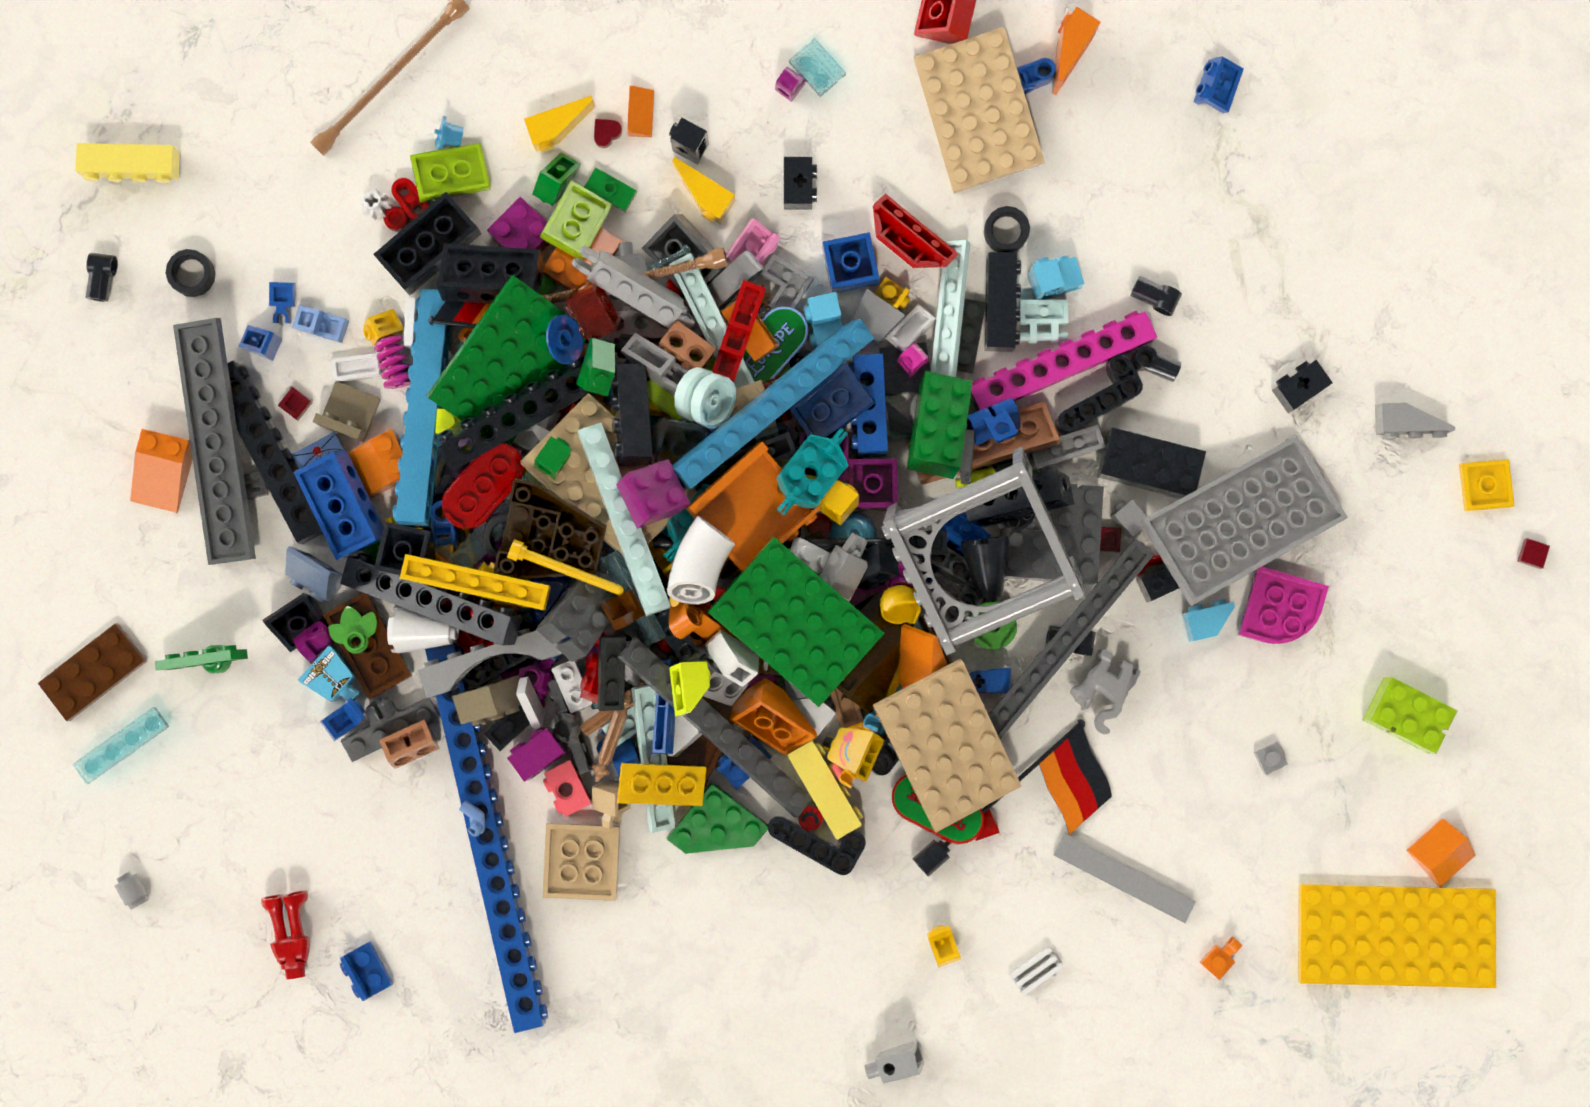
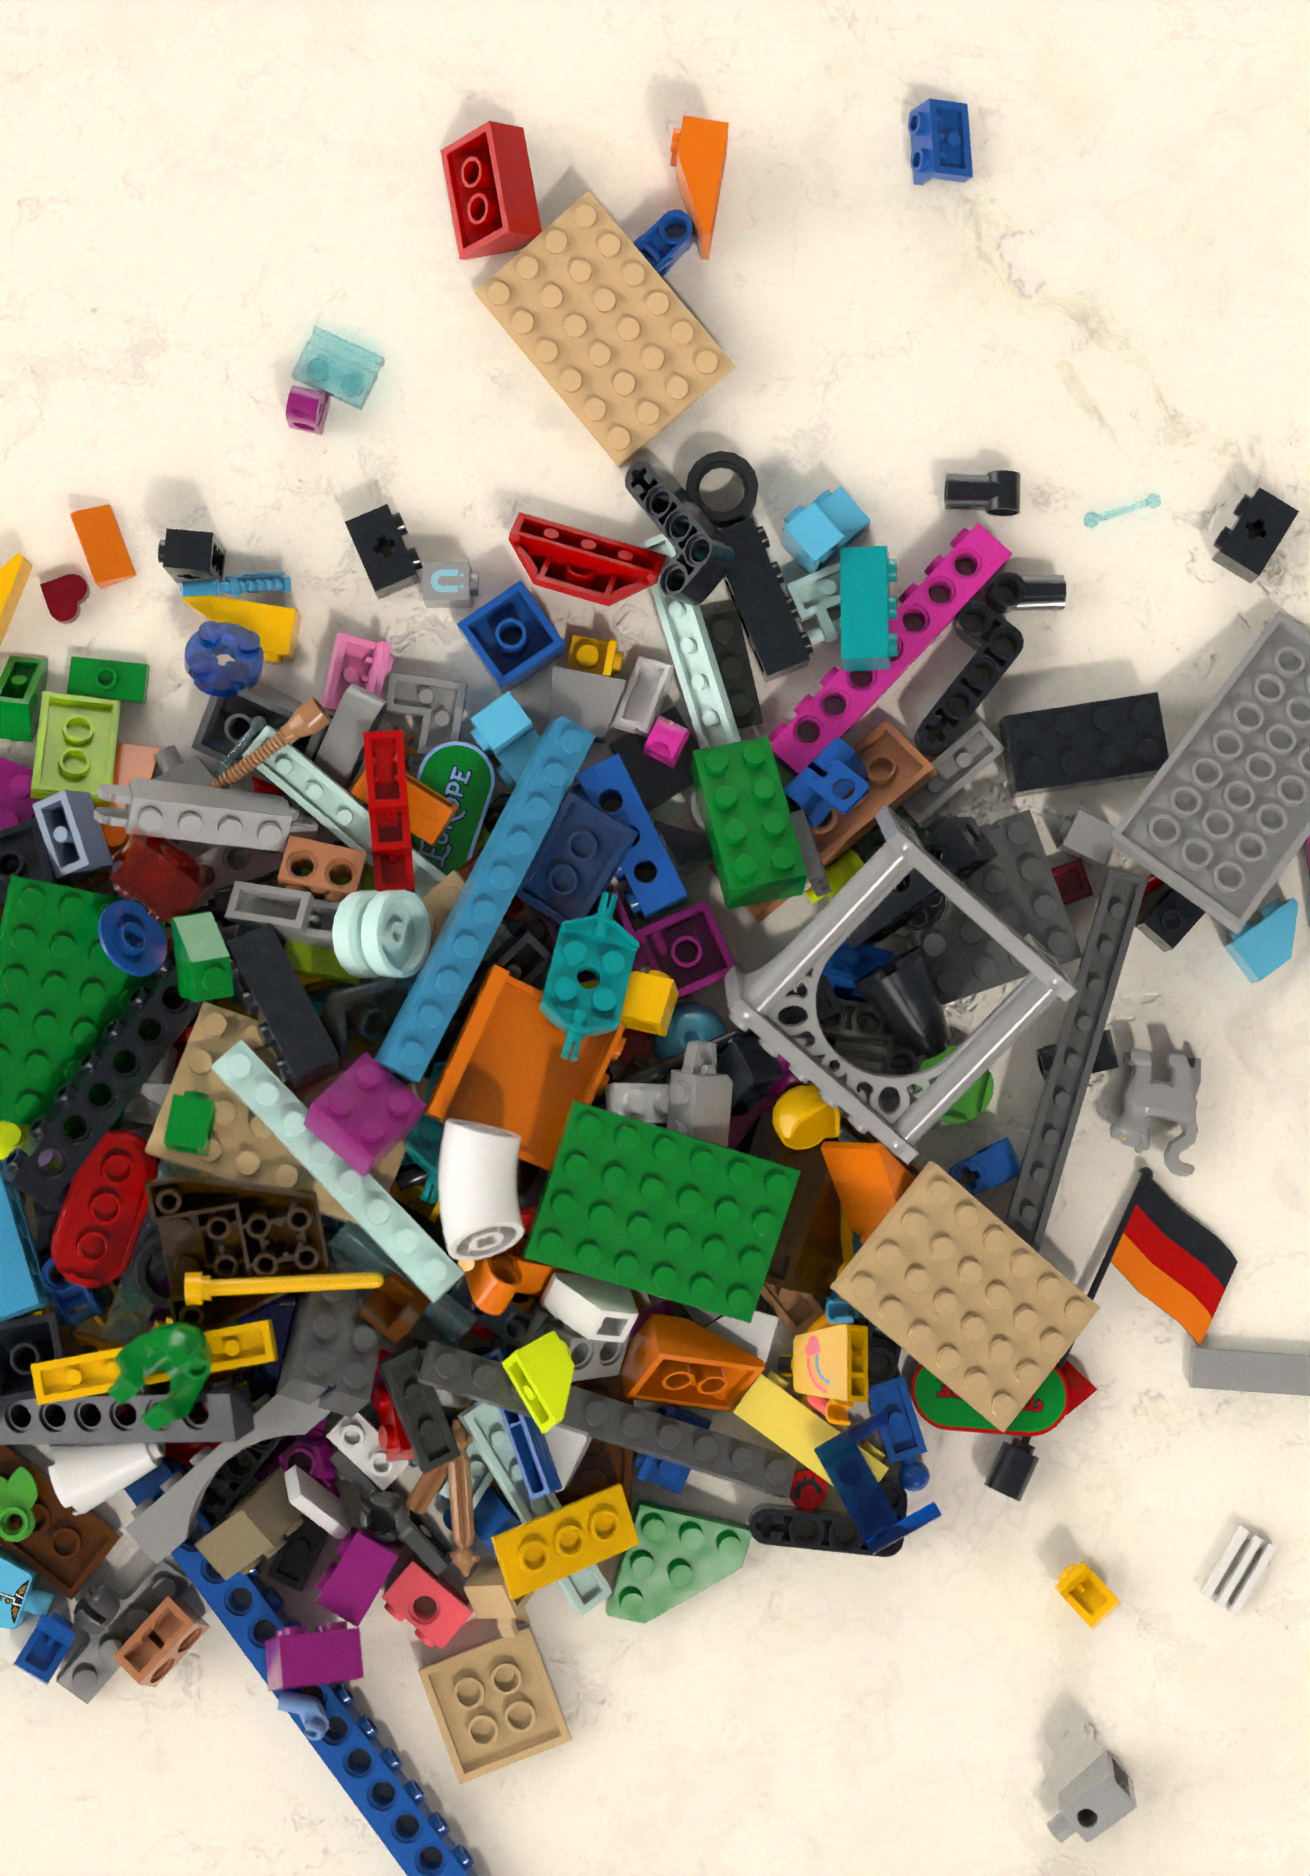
camera: 20 degrees left, 0 degrees up
(489, 578) = (171, 1348): none -> green piece
(492, 788) = (313, 1658): none -> magenta brick
(554, 268) = (72, 835): none -> sand blue brick
(688, 194) = (220, 639): none -> clear blue plate
(707, 166) = (235, 584): none -> dark azure piece
(827, 218) = (449, 584): none -> light grey brick
(840, 829) = (861, 1490): none -> clear blue plate
(877, 807) = (903, 1436): none -> blue plate
(980, 259) = (702, 551): none -> black beam
(1060, 332) = (867, 608): none -> teal brick
(1212, 337) = (1092, 519): none -> clear light blue hinge

